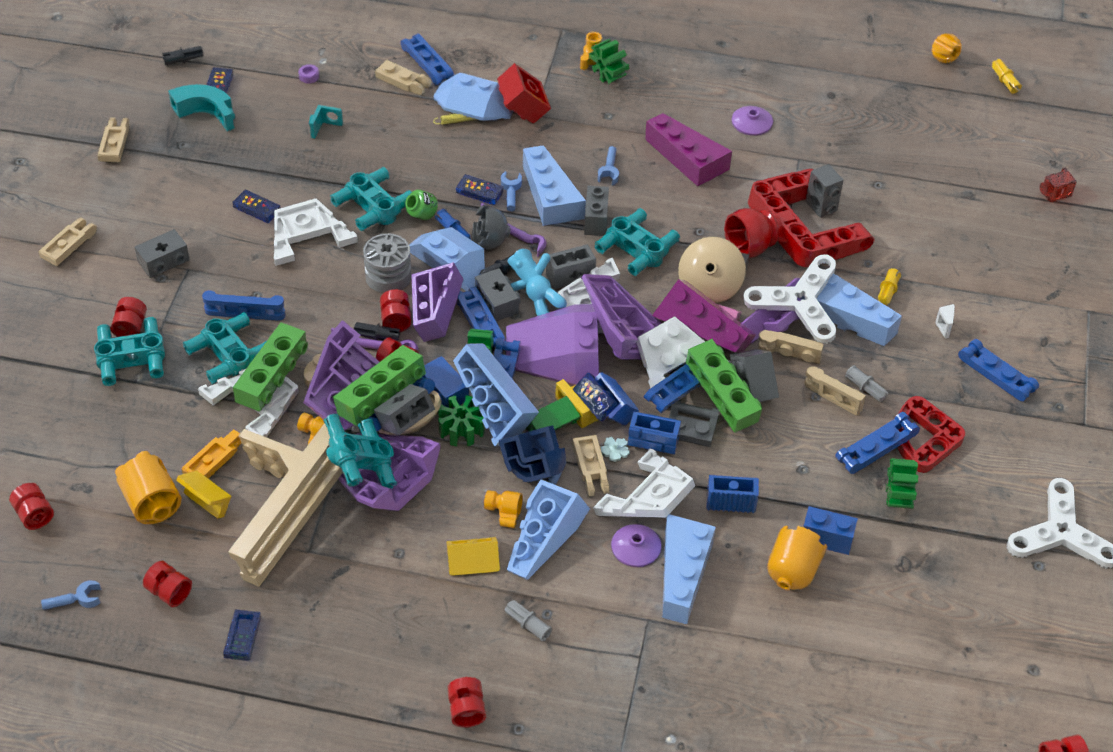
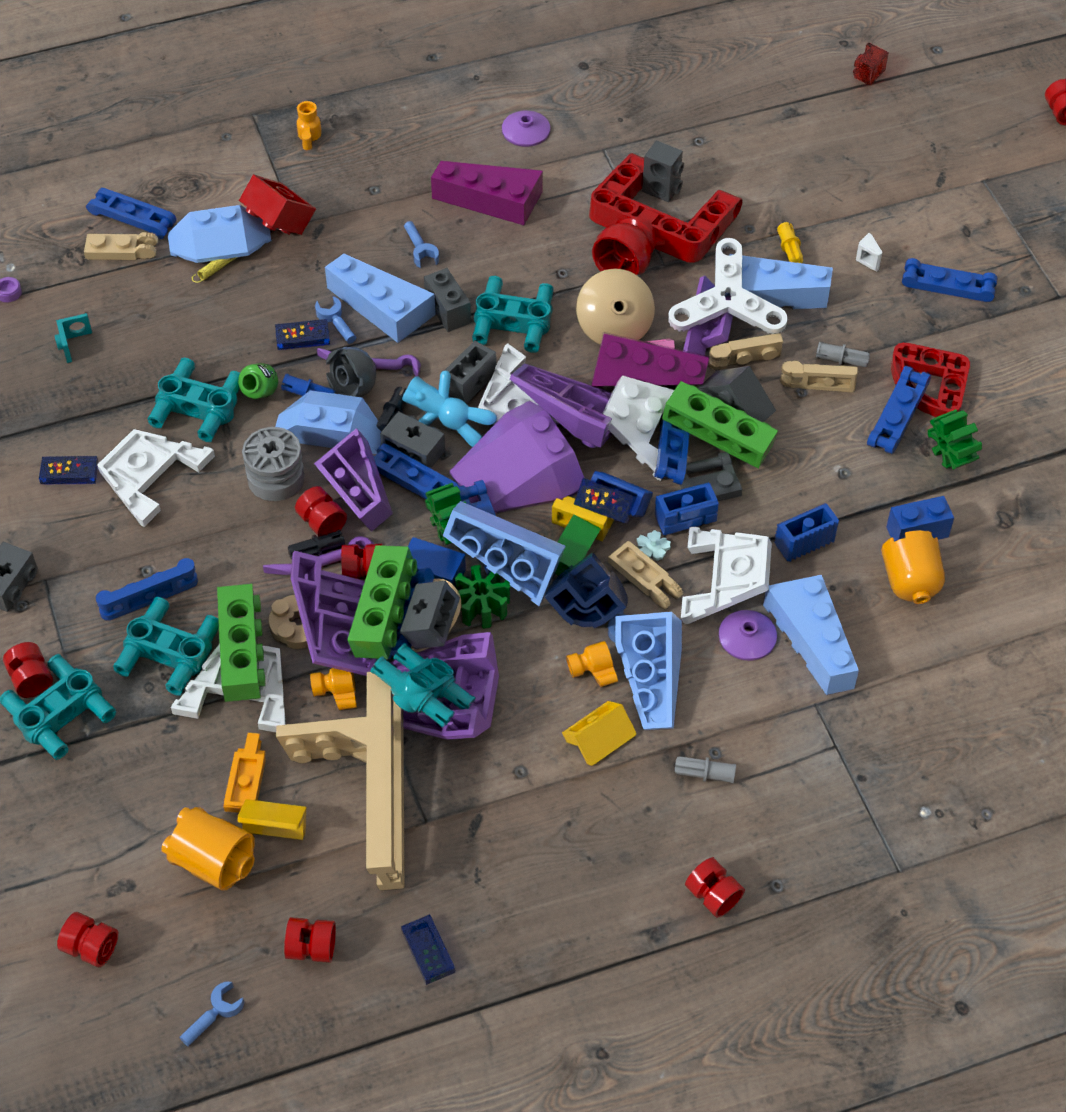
camera: 30 degrees left, 5 degrees up
(609, 61) = (339, 127): green gear -> none

